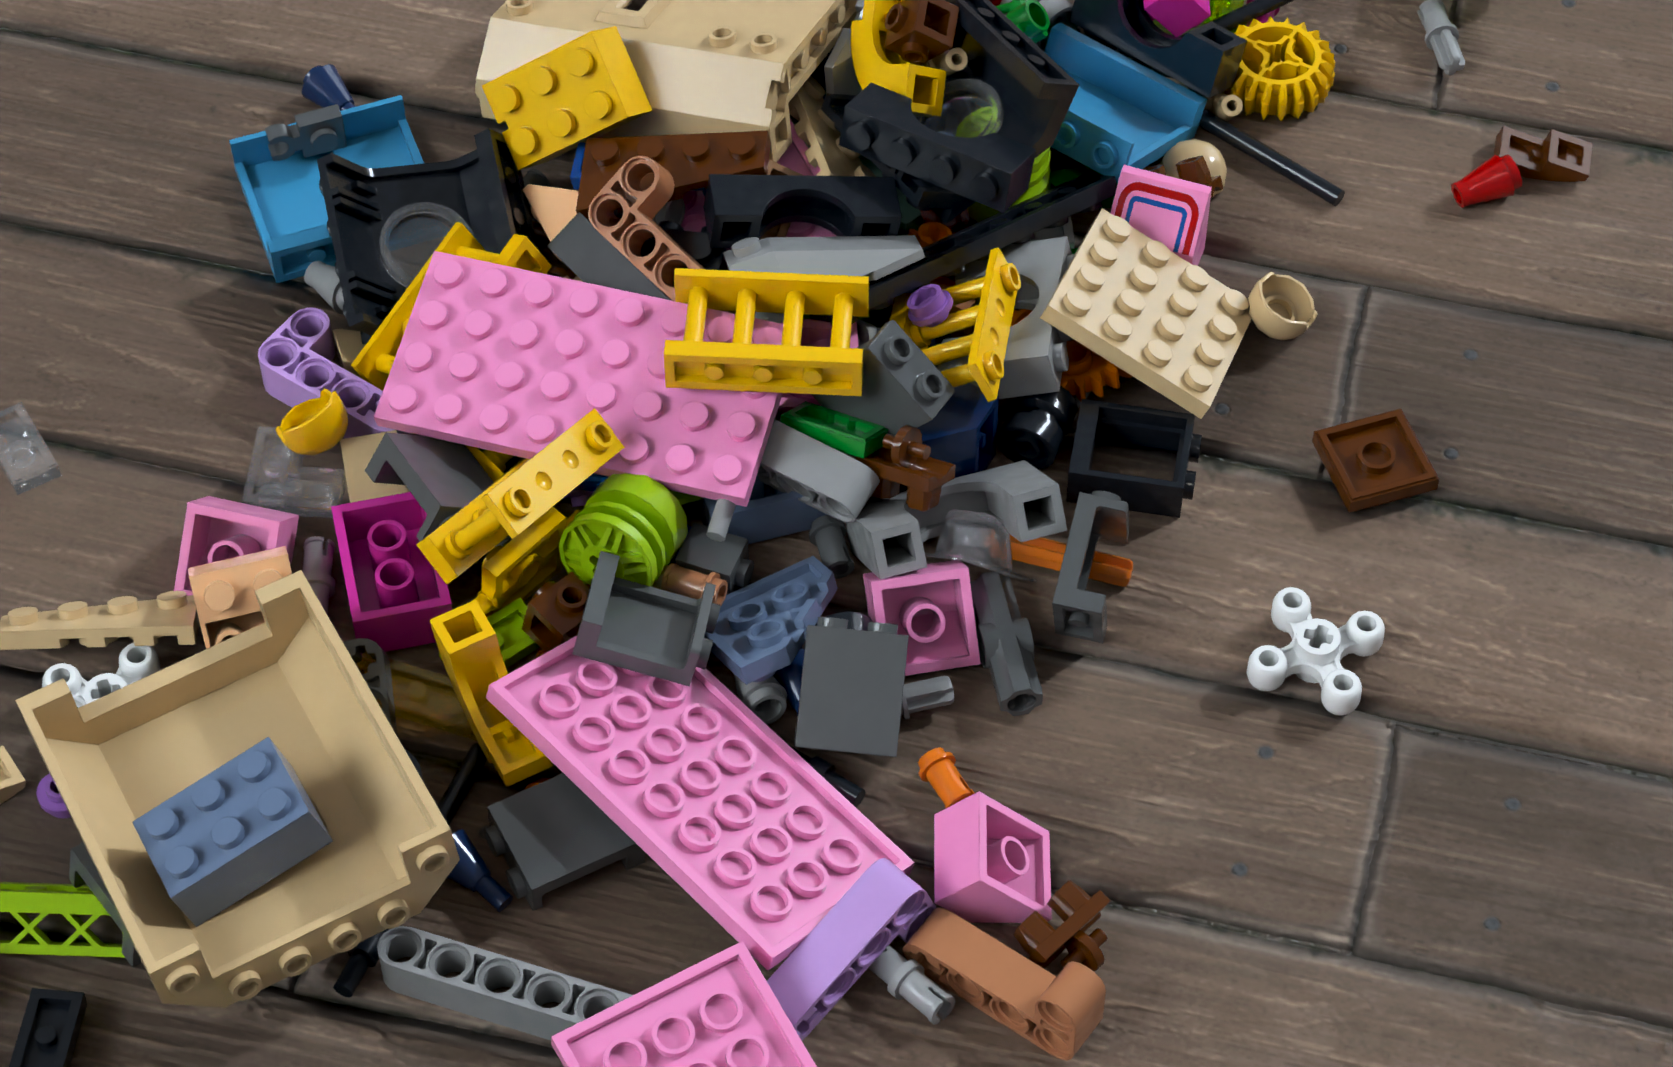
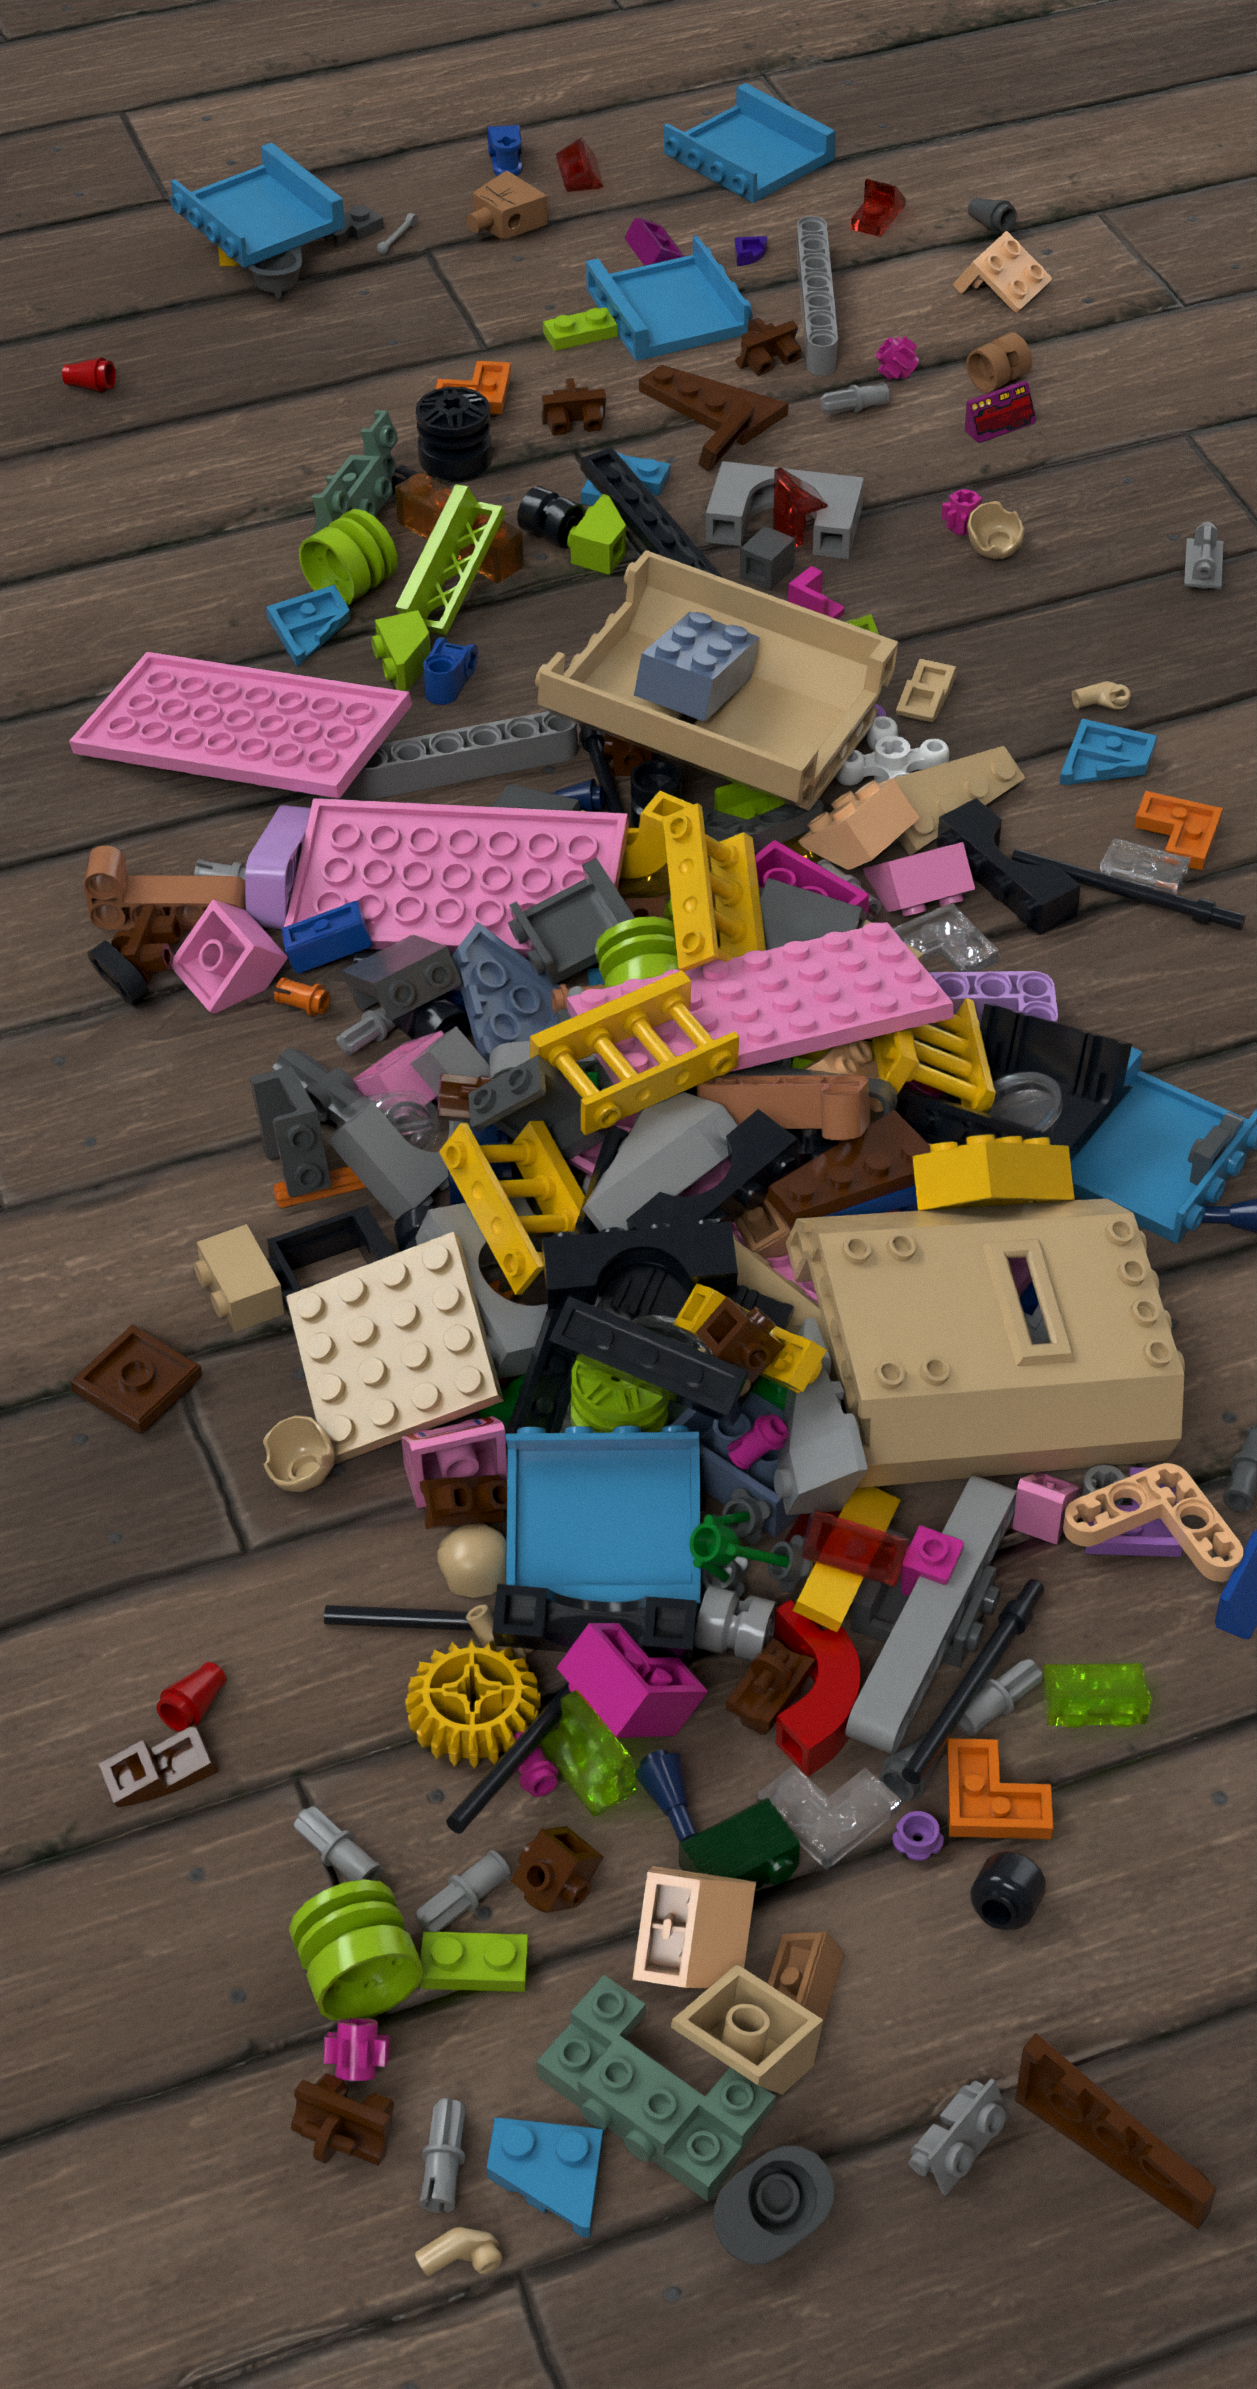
camera: 145 degrees right, 5 degrees down
(28, 381) = (1202, 911): none -> black bar
(151, 469) = (1036, 893): none -> black arch
(314, 424) = (947, 945): yellow hair -> none
(877, 815) = (326, 937): none -> blue slope
(929, 305) = (559, 1210): medium lavender plate -> none
(1120, 917) = (118, 972): none -> black beam
(1223, 497) = (239, 1278): none -> tan brick
(1316, 651) = (89, 1203): white gear -> none

